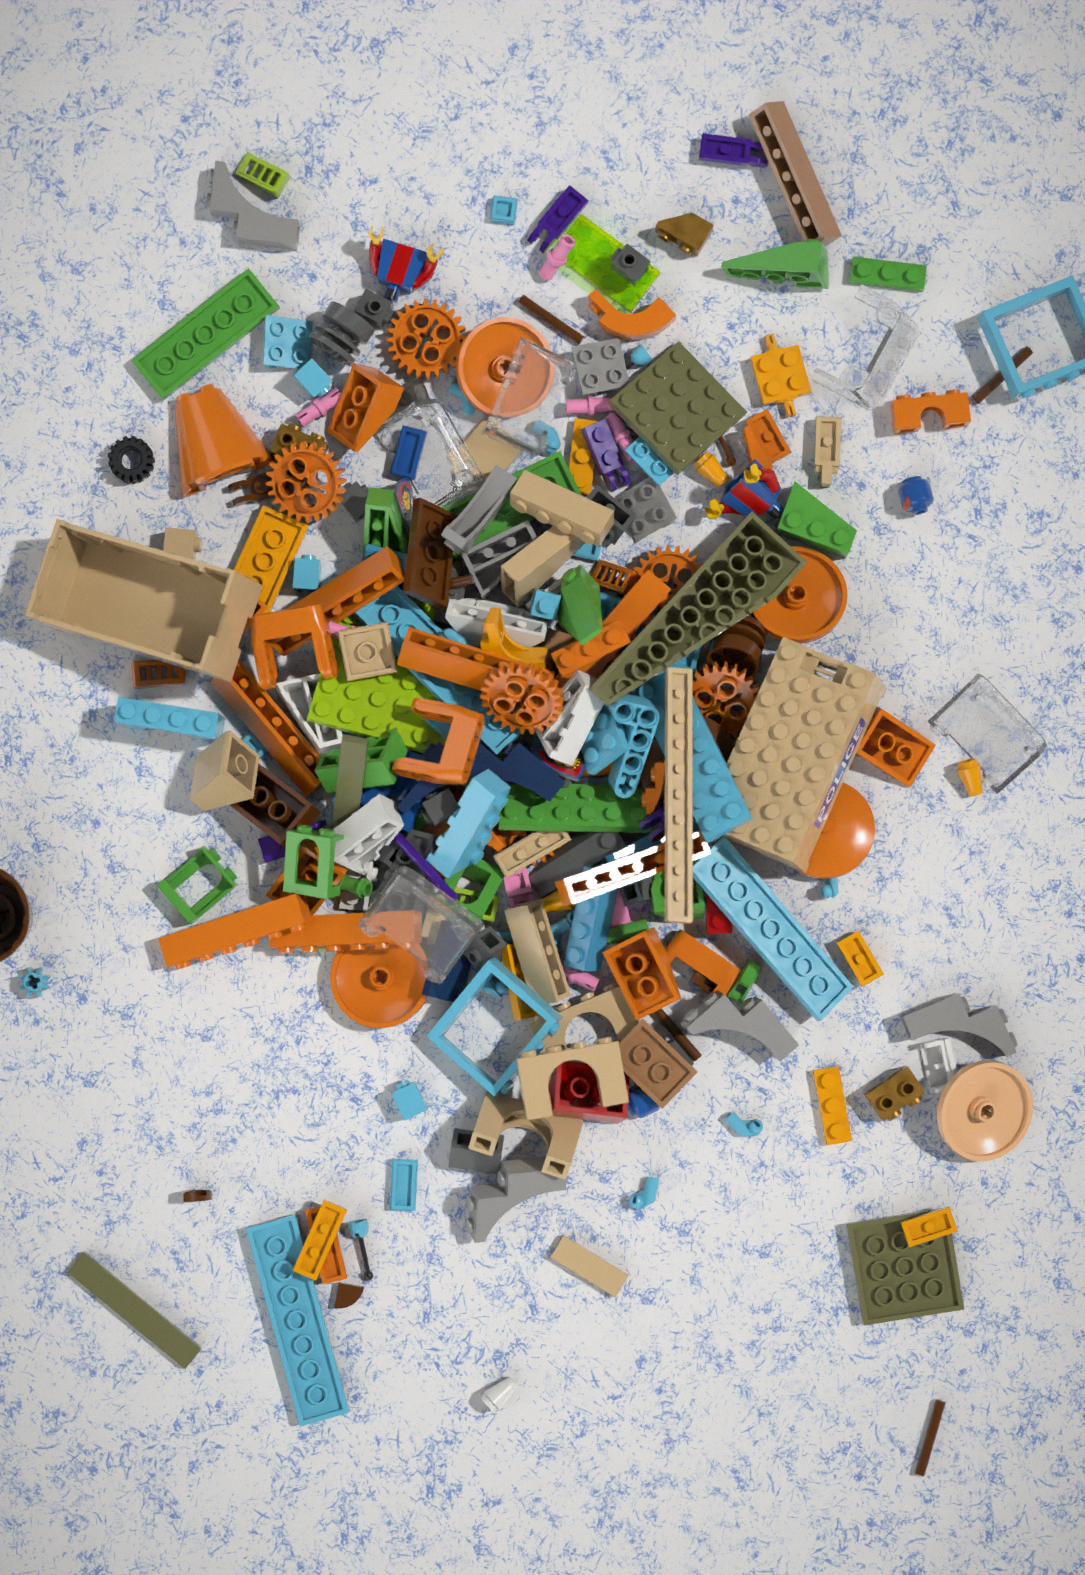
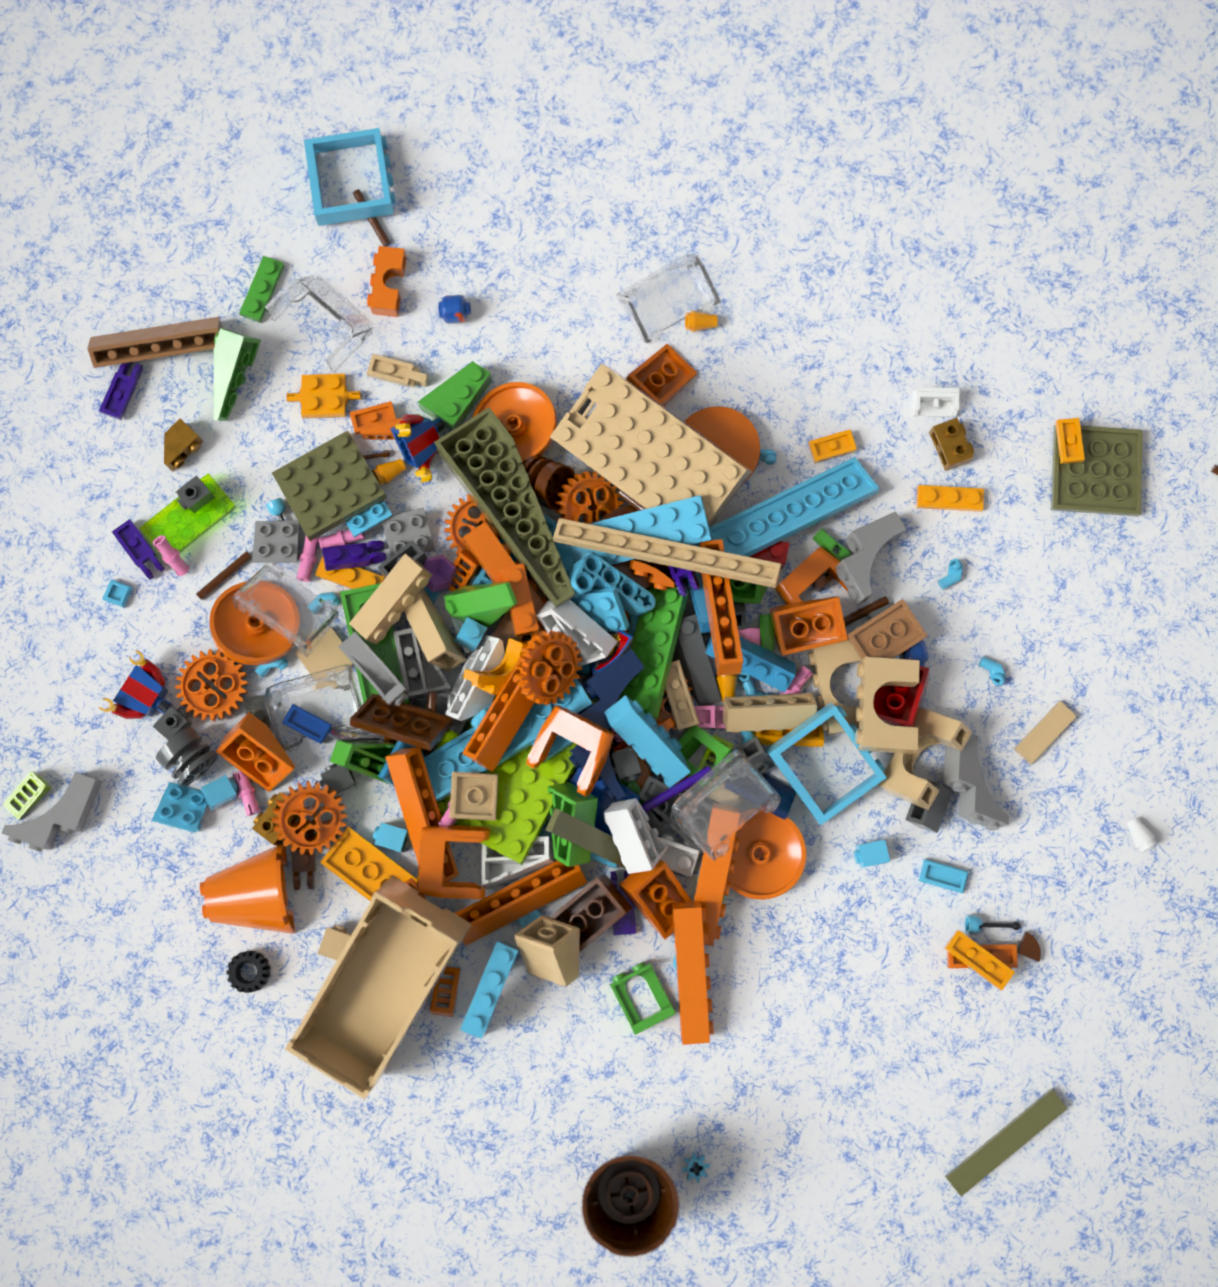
camera: 80 degrees left, 5 degrees down
(197, 1195) = (916, 1062): reddish brown tile -> none
(205, 334) = (154, 878): bright green plate -> none
(297, 1322) = (1044, 997): medium azure plate -> none
(325, 841) = (634, 870): bright green panel -> none
(361, 887) = (678, 852): bright green pin -> none
(494, 988) = (790, 758): medium azure arm -> none
(609, 554) = (442, 573): none -> medium lavender panel
(631, 326) = (247, 510): orange arch -> none
(952, 1015) = (895, 383): light grey arch -> none
(985, 1110) = (982, 373): light nougat dish -> none

